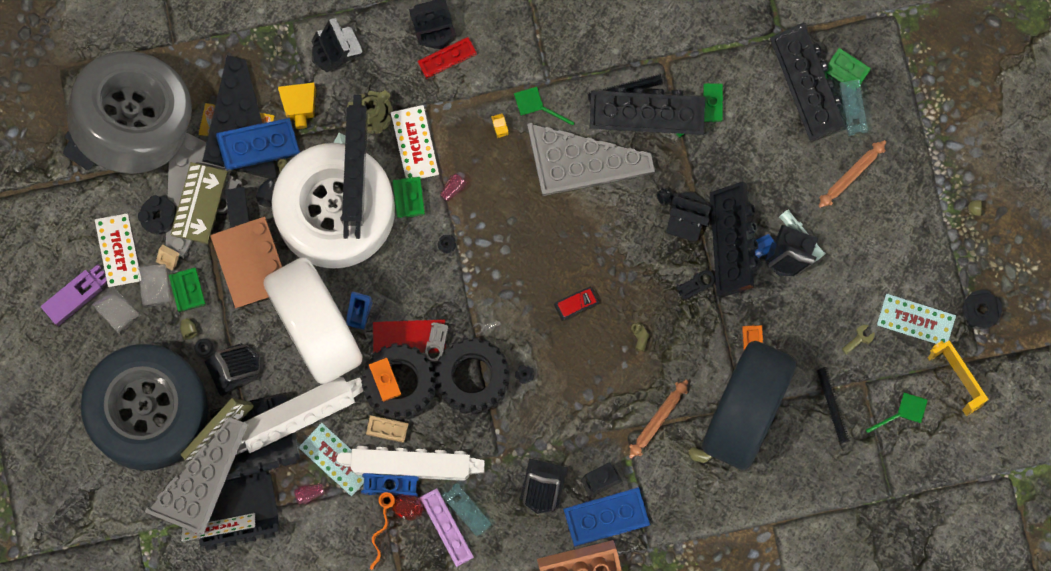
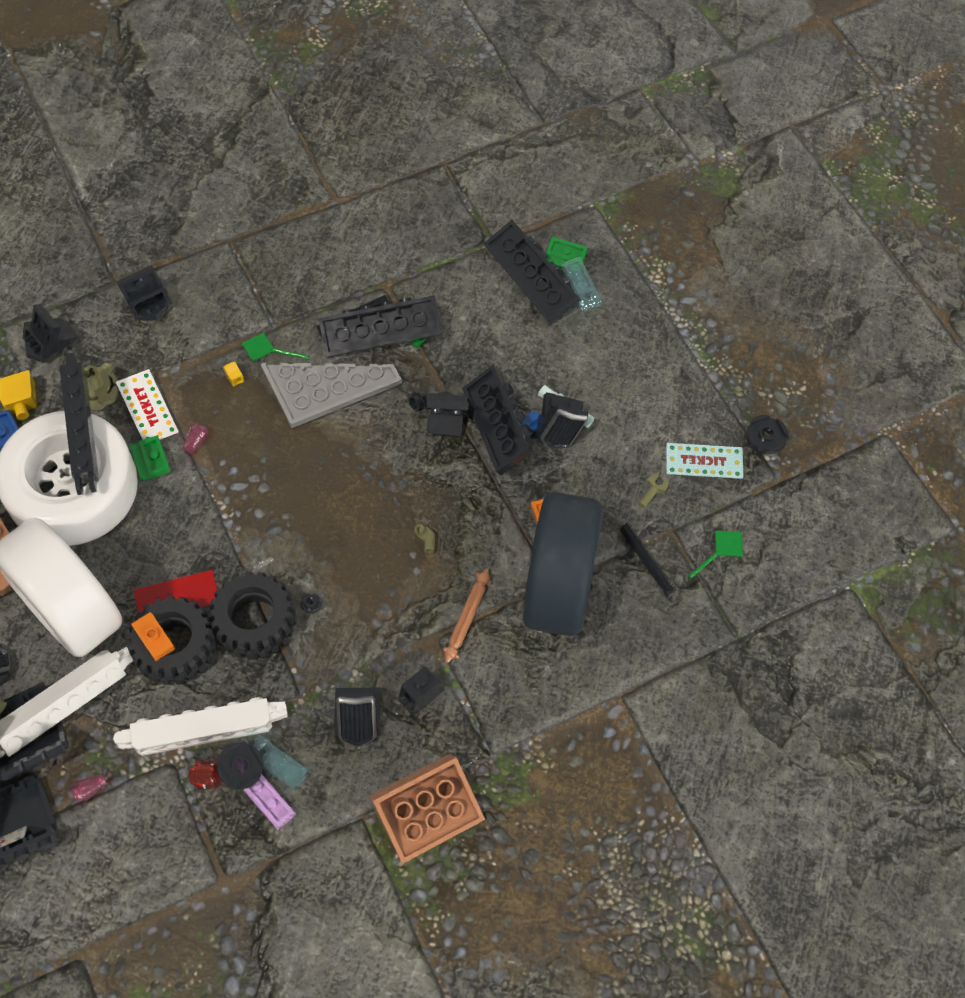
camera: 20 degrees left, 15 degrees down
(323, 449) = (97, 737): clear light blue sticker -> none
(358, 310) = (114, 576): blue slope -> none
(378, 482) = (168, 755): blue piece -> none
(383, 496) = (175, 770): orange flag -> none
(387, 429) = (168, 695): tan plate -> none
(437, 340) = (206, 587): light grey piece -> none
(440, 498) = (252, 770): none -> black plate
(446, 239) = (195, 490): black plate -> none
(447, 57) = (166, 325): red tile -> none
(576, 303) = (349, 520): slope -> none
(606, 517) = (436, 732): blue tile -> none
(694, 286) = (470, 477): black piece -> none
(699, 455) = (524, 641): olive arm -> none
(714, 102) = (445, 310): green plate -> none
(852, 174) = (598, 342): nougat wheel -> none
(963, 373) = (770, 494): yellow panel -> none
(975, 207) = (727, 346): olive hinge -> none

